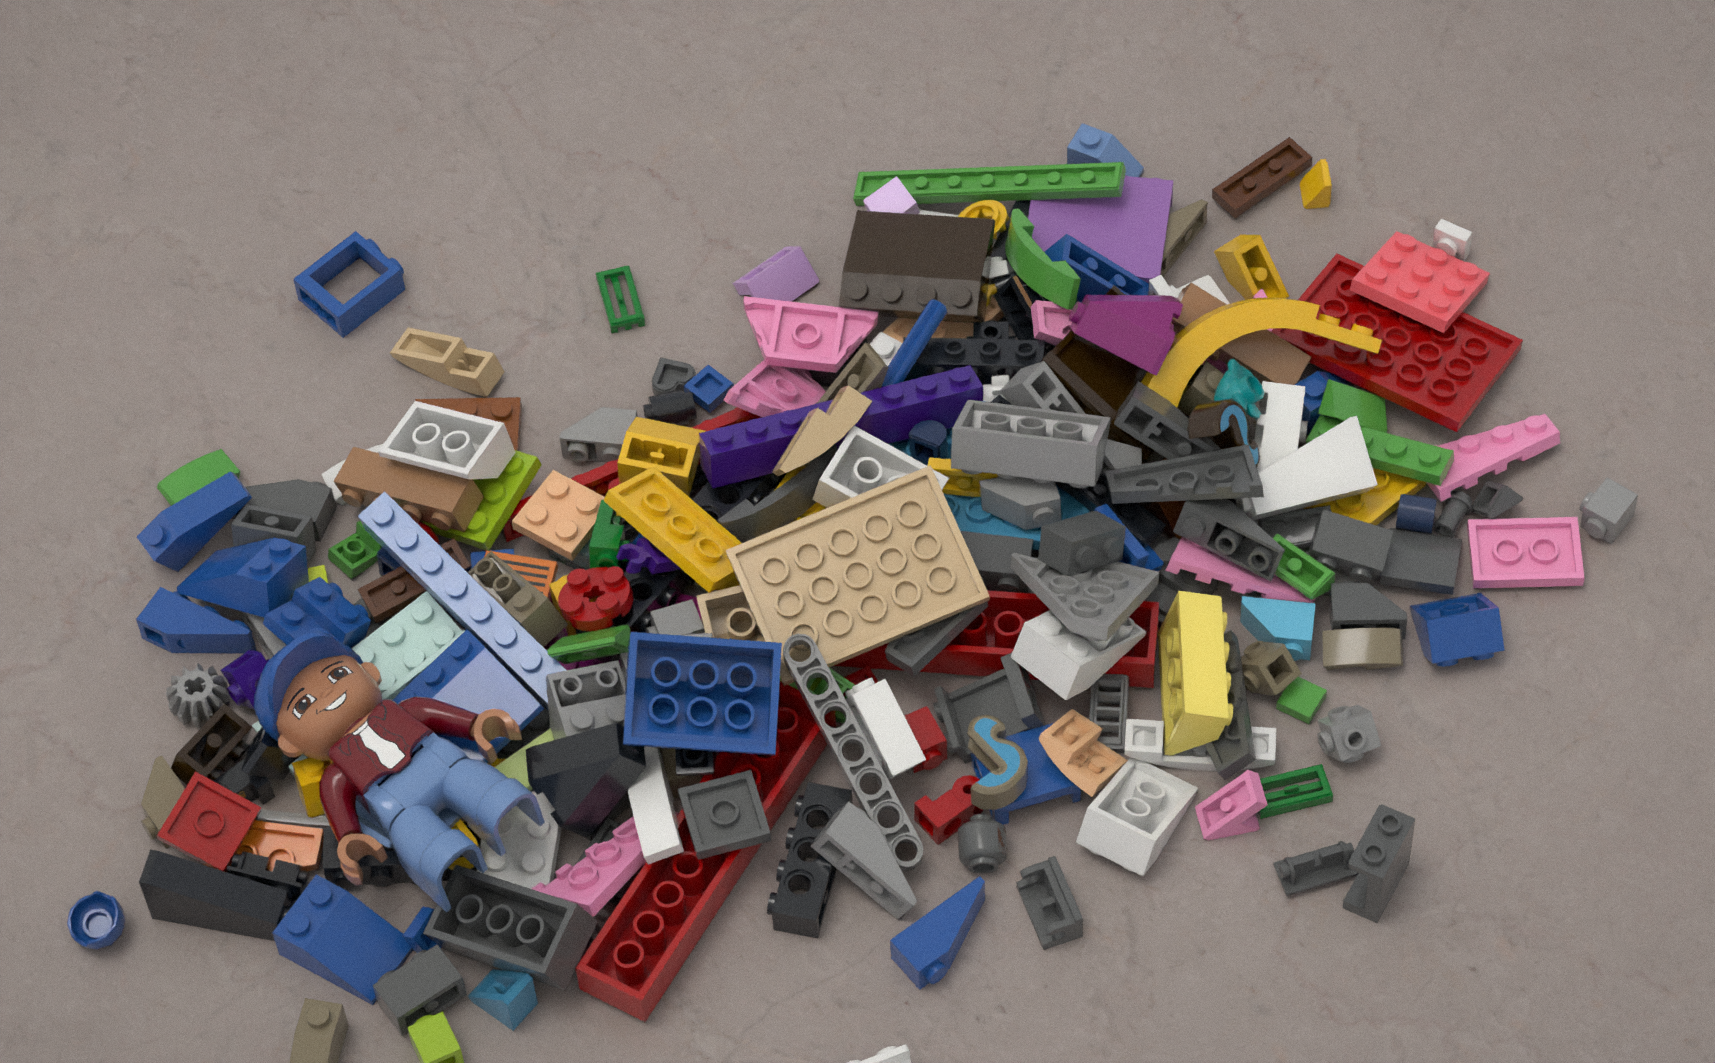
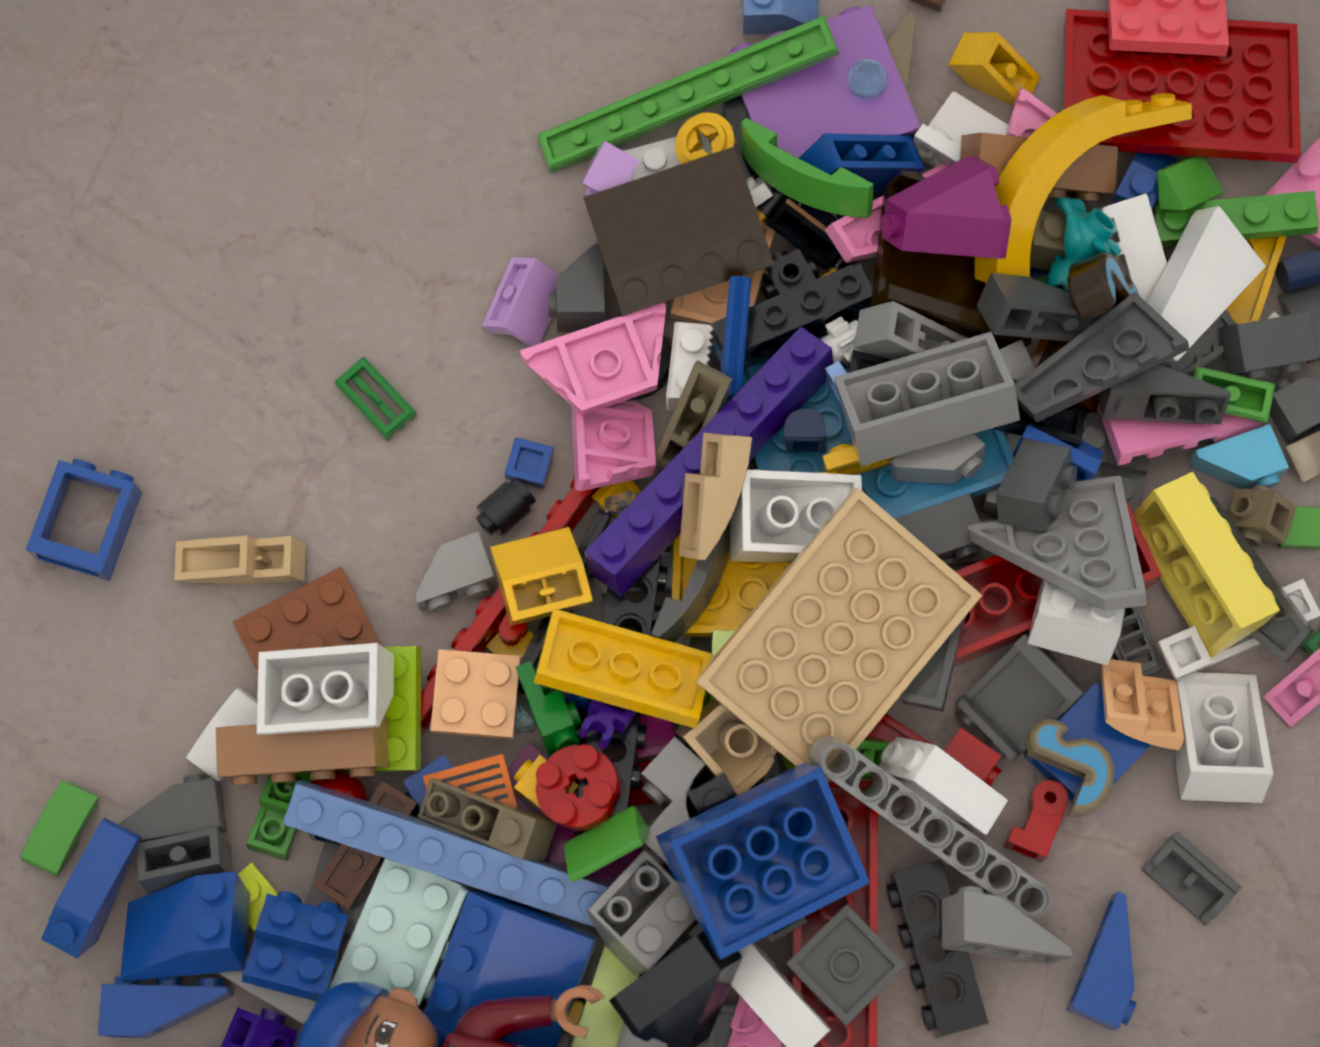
camera: 30 degrees left, 20 degrees up
(671, 376) = (481, 465): dark grey tile -> none
(817, 283) = (579, 293): none -> dark grey slope
(982, 844) = (1093, 848): dark grey head -> none
(1135, 225) = (867, 78): none -> clear light blue plate

